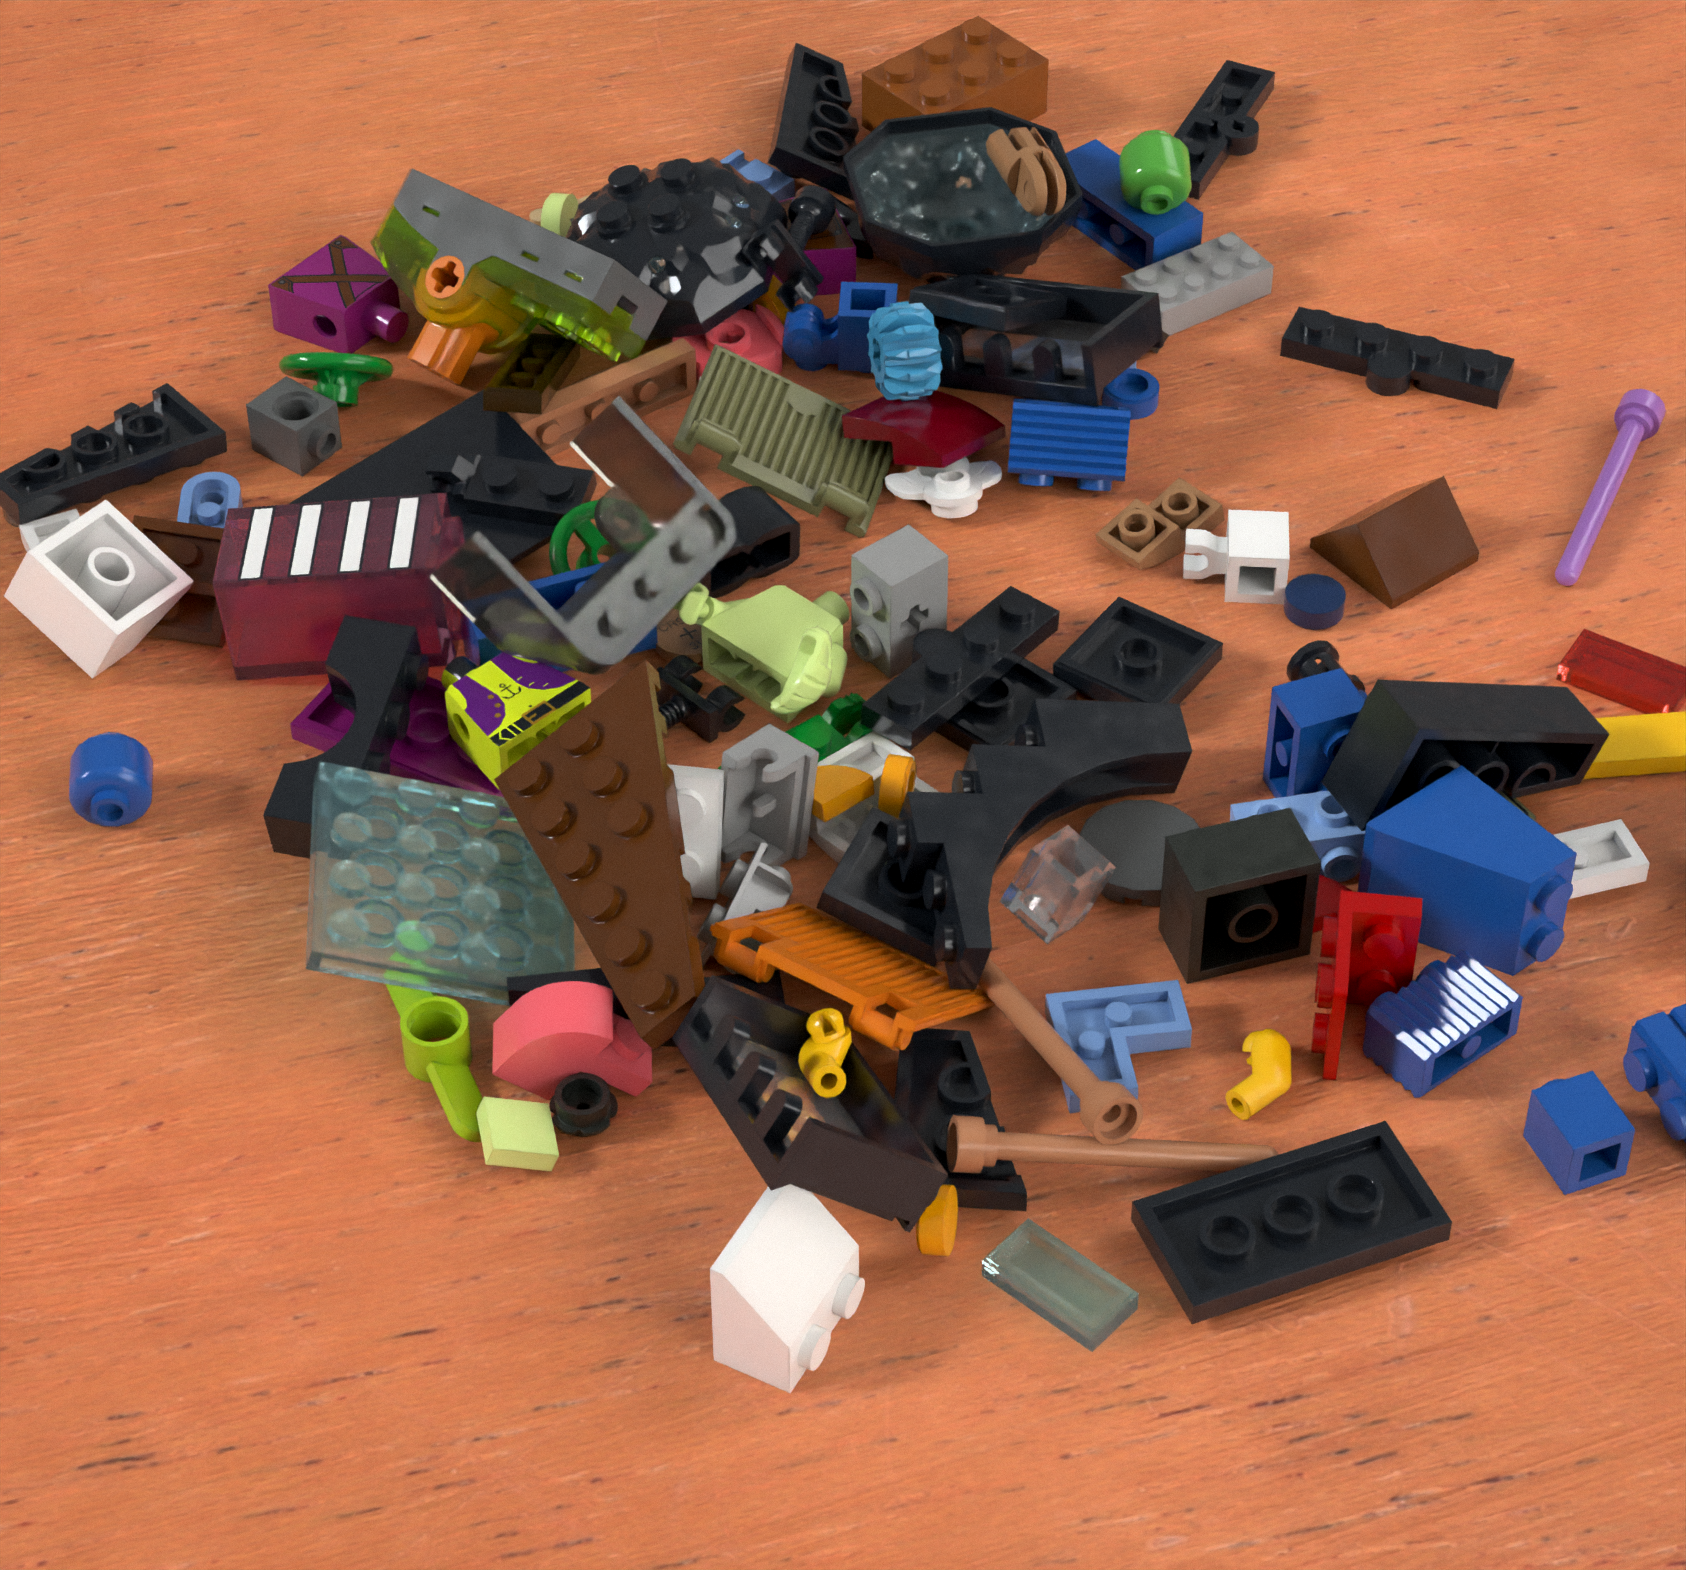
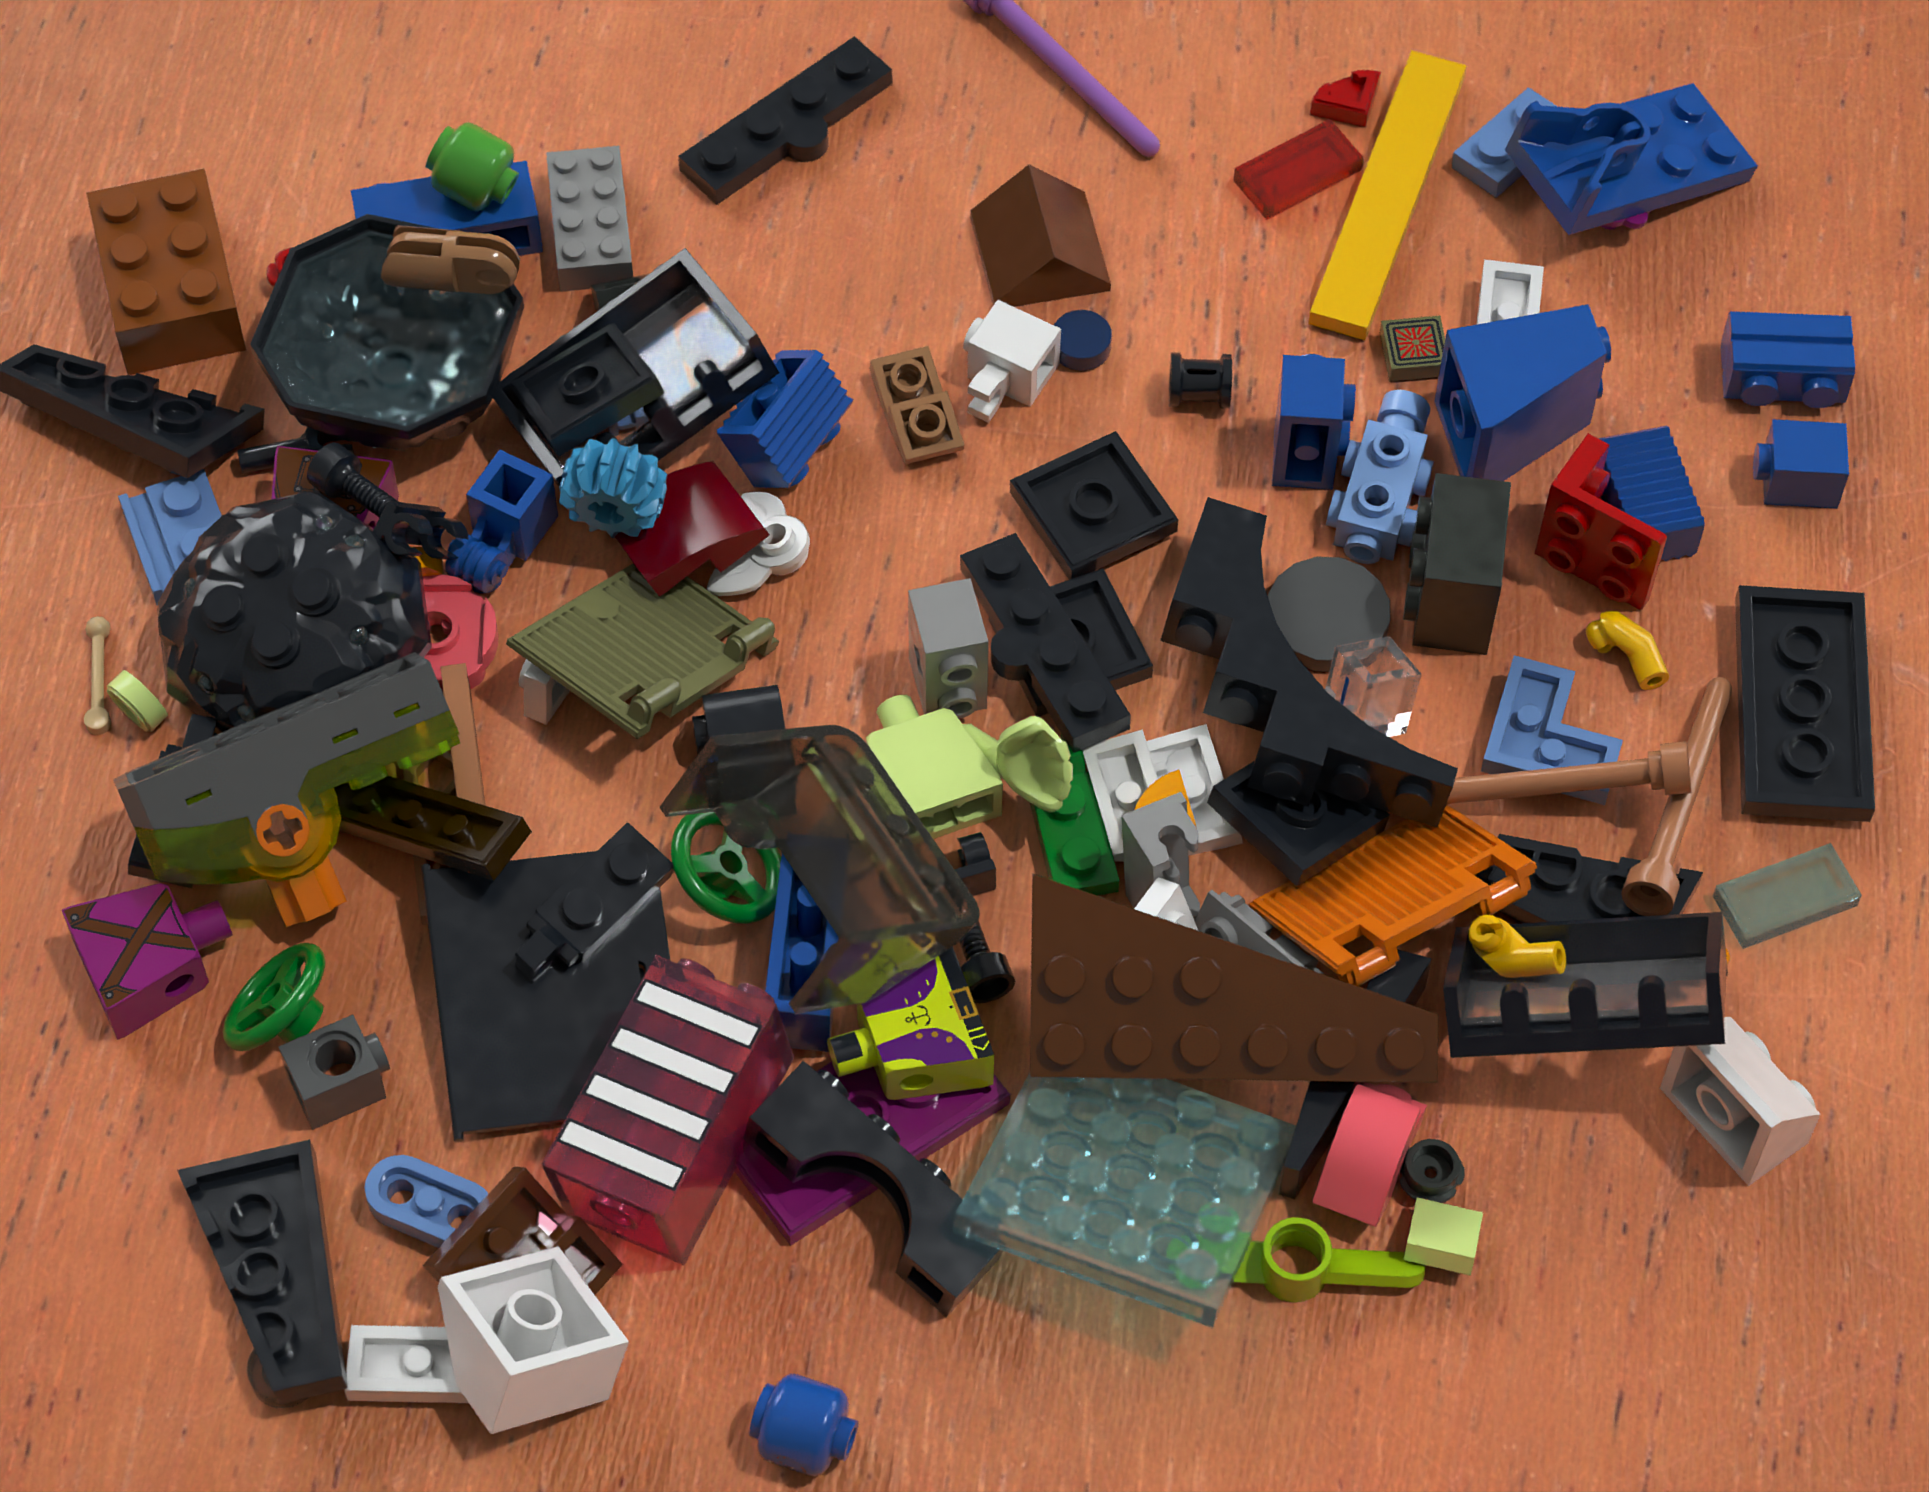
camera: 65 degrees left, 15 degrees up
(896, 780) = (1185, 752): light orange tile -> none
(1224, 120) = (361, 88): black hinge -> none
(1422, 730) = (1394, 325): black wedge -> none

